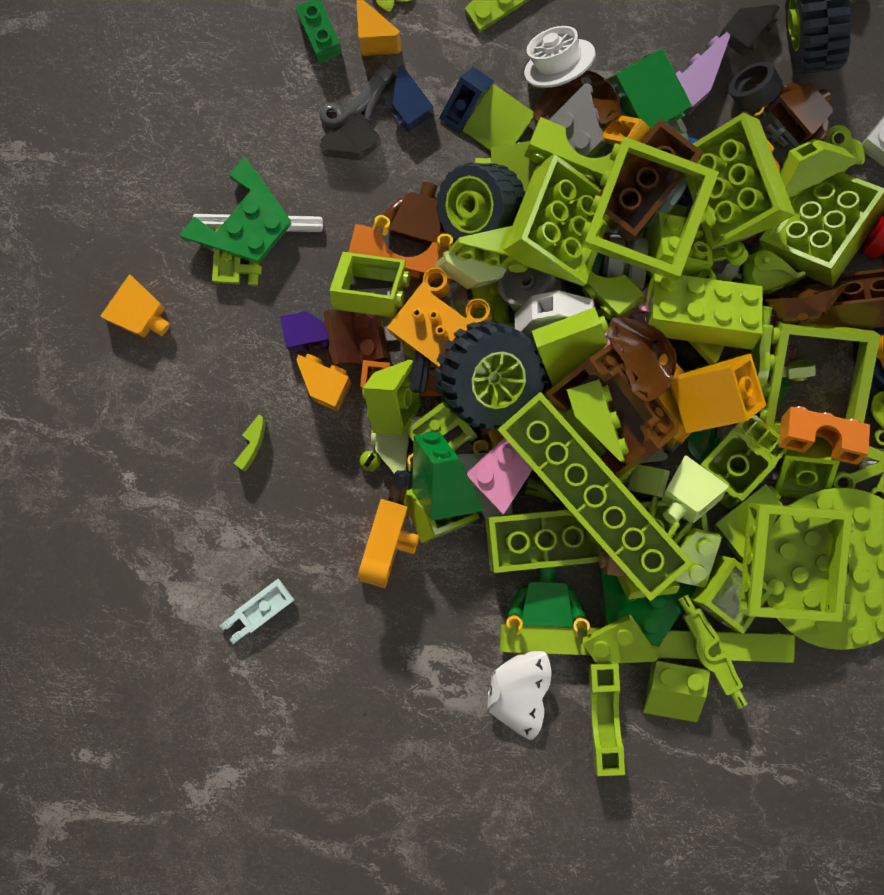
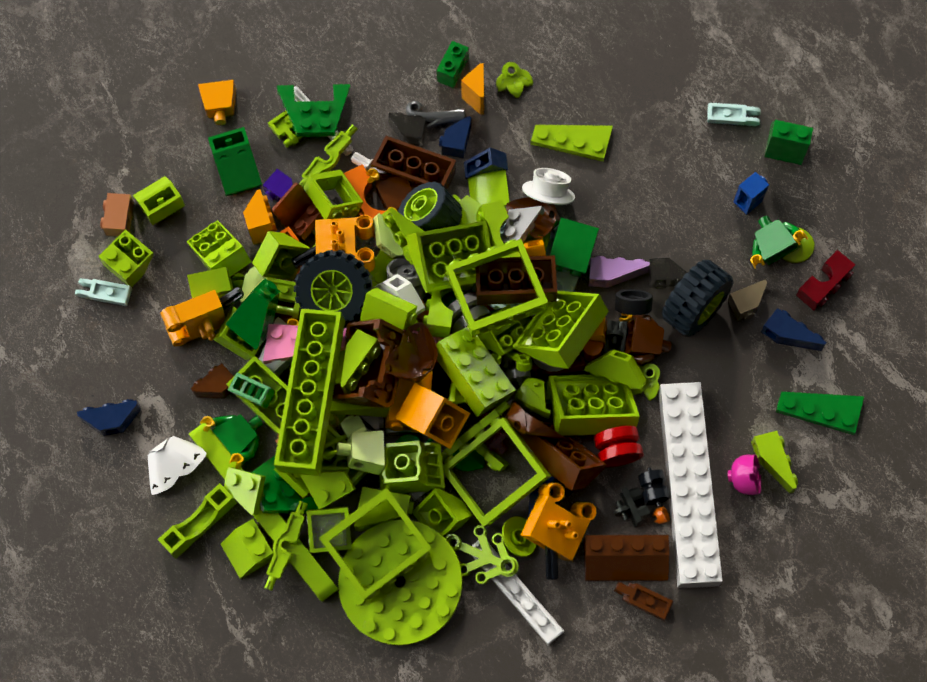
camera: 50 degrees right, 15 degrees down
(179, 526) = (117, 214): none -> nougat brick
(200, 468) = (159, 200): none -> lime slope
(229, 352) = (235, 161): none -> green slope
(242, 556) = (127, 258): none -> lime slope
(255, 435) = (200, 212): lime slope -> none
(308, 239) = (334, 150): none -> lime piece
(317, 454) = (219, 249): none -> lime slope
(358, 216) = (359, 159): none -> white axle
(359, 496) = (210, 280): none -> lime slope
(404, 170) = (414, 162): none -> reddish brown slope
(411, 717) = (110, 417): none -> dark blue slope
(470, 578) = (213, 384): none -> reddish brown slope
(532, 539) = (263, 396): none -> green slope
(846, 436) = (458, 481): orange arch -> none

